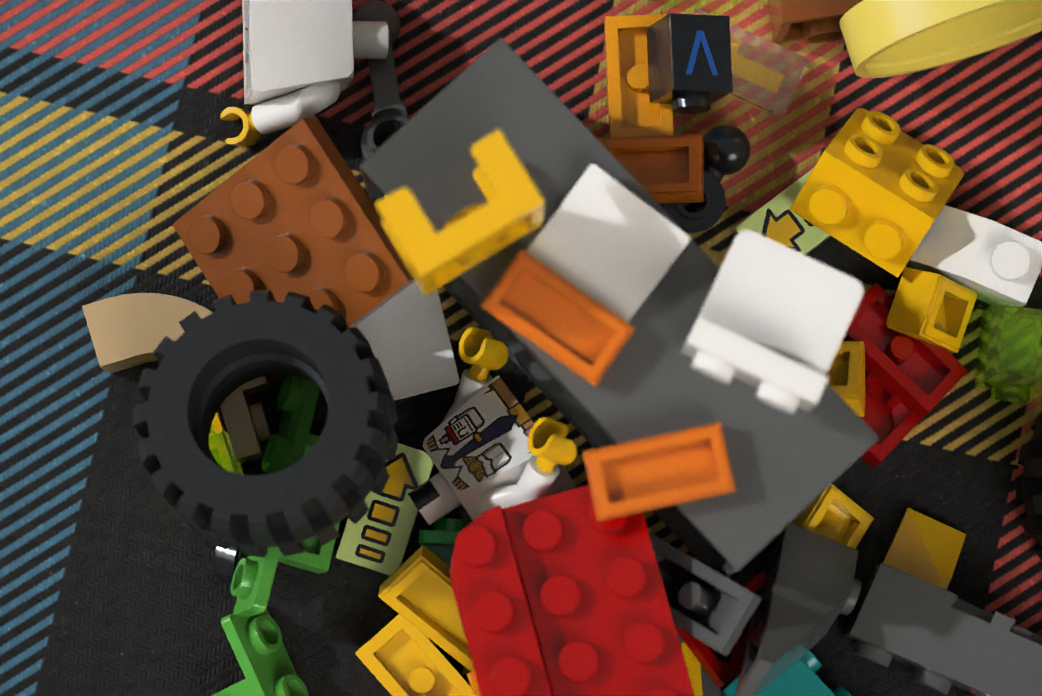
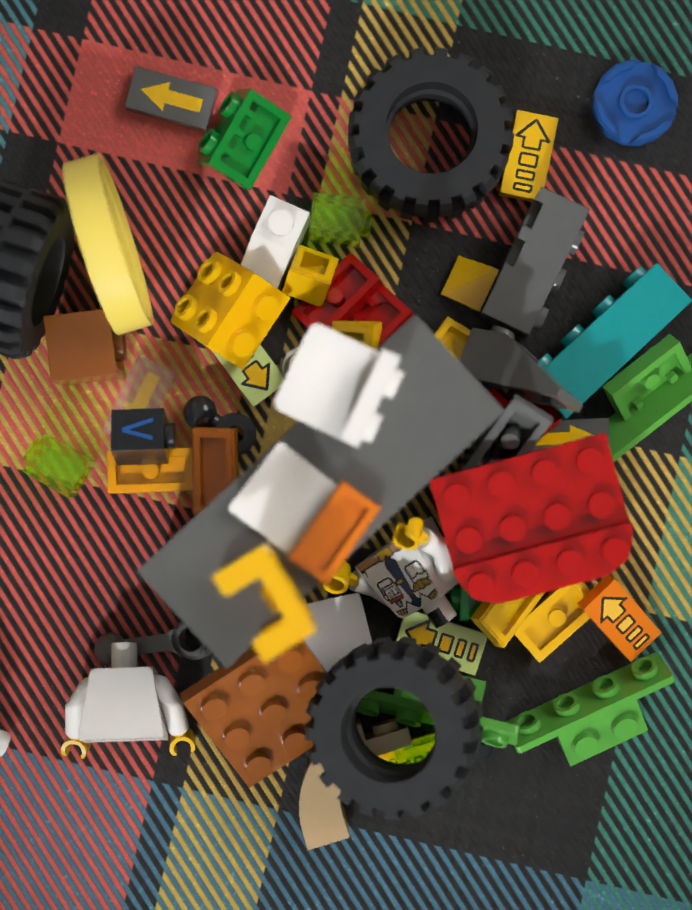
camera: 90 degrees left, 5 degrees up
(659, 471) = (439, 464): orange tile -> none

